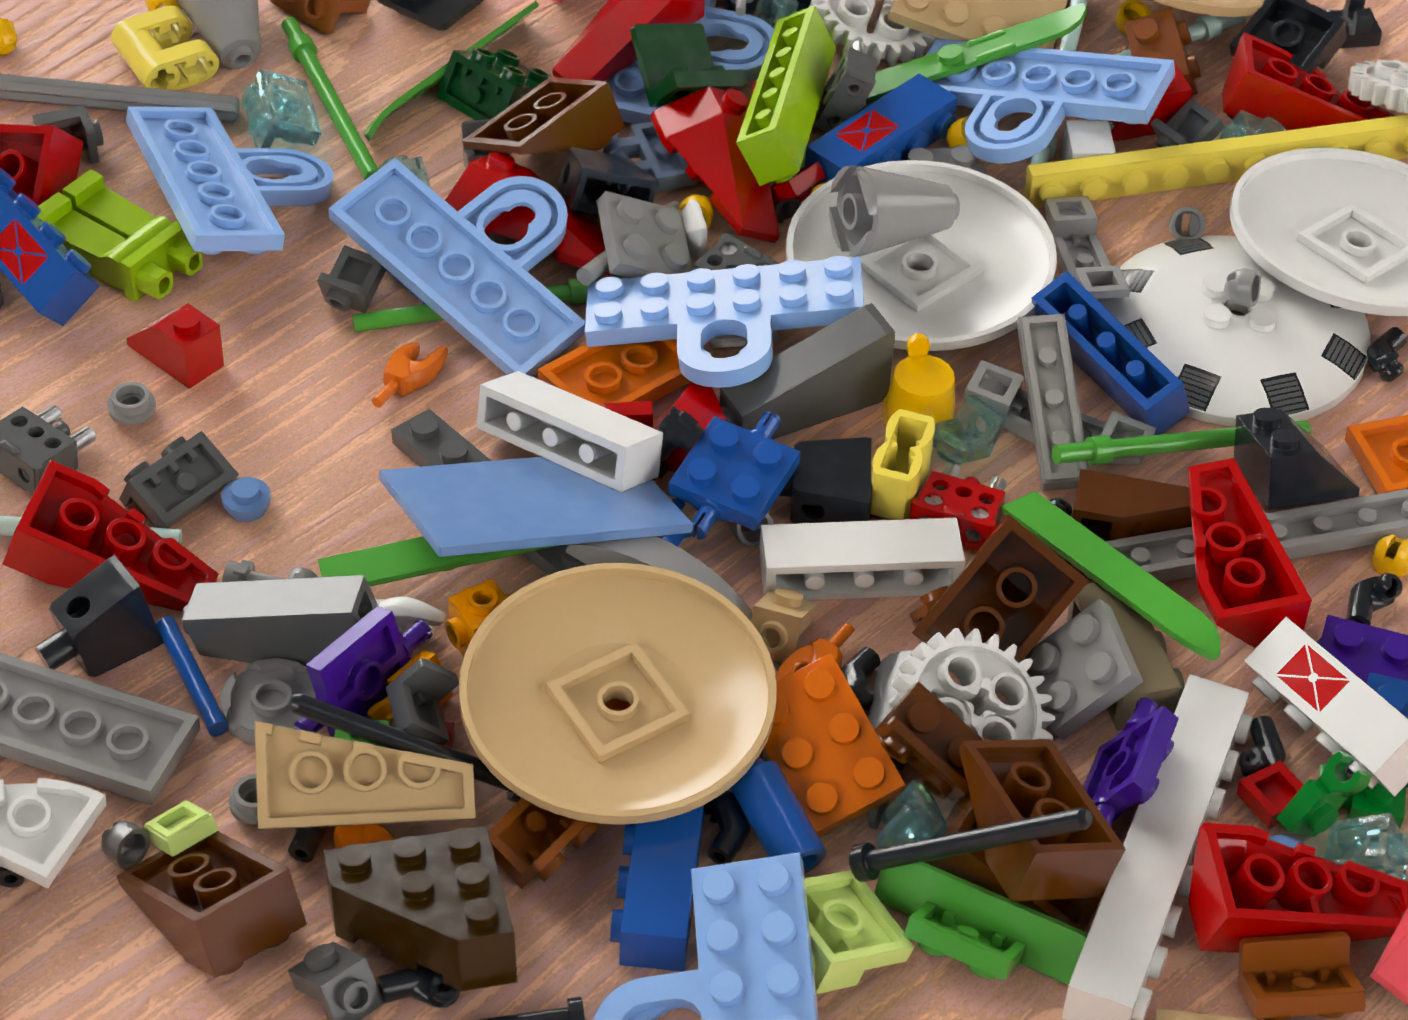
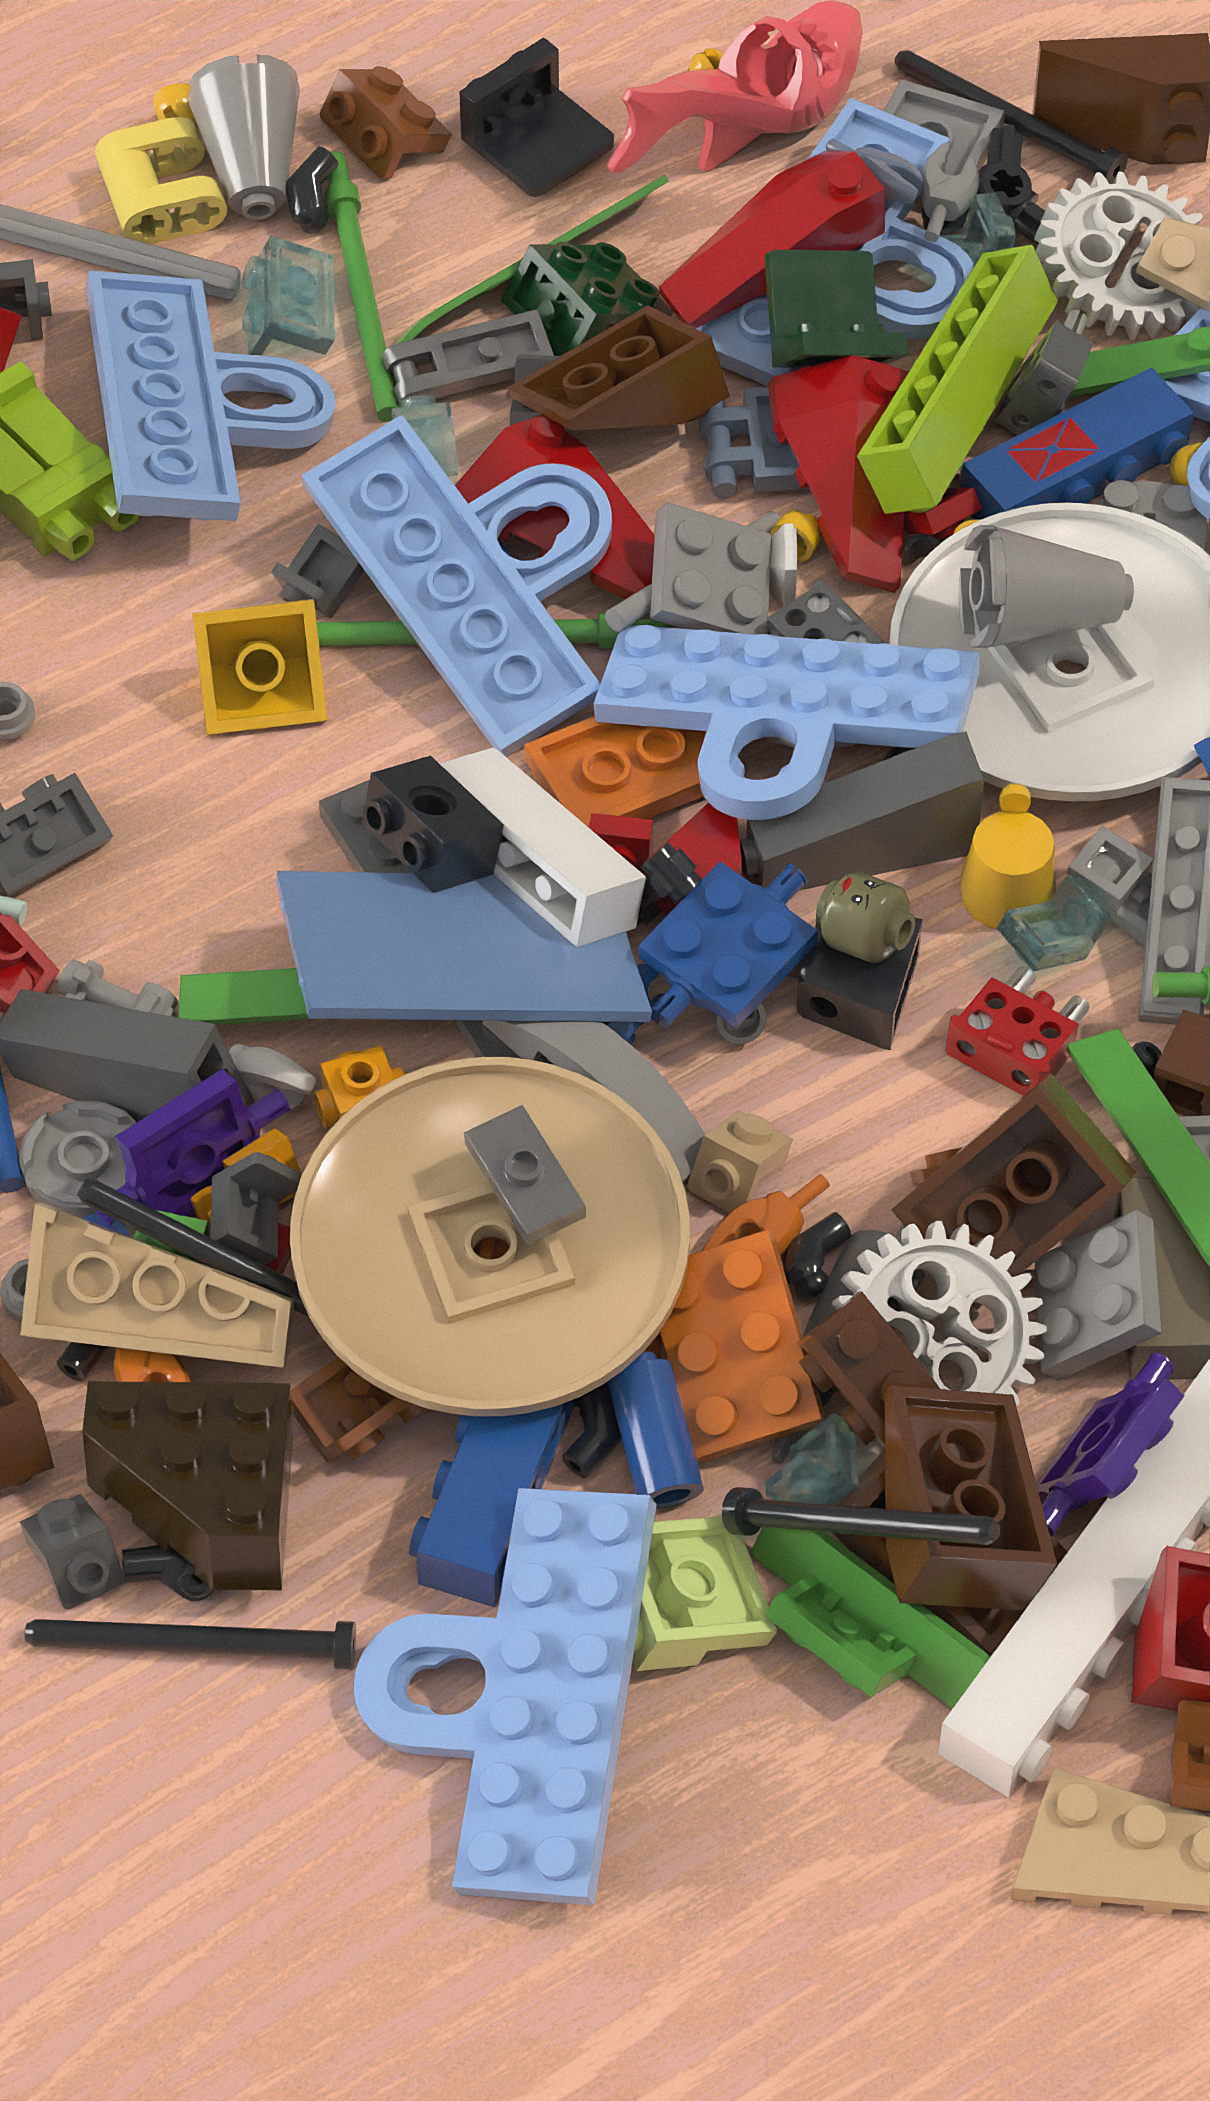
camera: 15 degrees right, 10 degrees up
(181, 344) = (83, 635): red slope -> none
(246, 498) = (116, 869): medium blue plate -> none
(275, 44) = (305, 190): none -> black arm
(322, 344) = (259, 666): none -> yellow slope
(406, 374) = (358, 722): orange hand -> none
(421, 130) = (465, 356): none -> flat silver plate
(488, 424) = (432, 823): none -> black brick
(591, 173) = (679, 470): black torso -> none
(636, 641) = (525, 1175): none -> flat silver plate
(833, 437) = (865, 917): none -> olive head
(861, 557) = (864, 1086): white brick -> none
(901, 464) = (952, 962): light yellow brick -> none

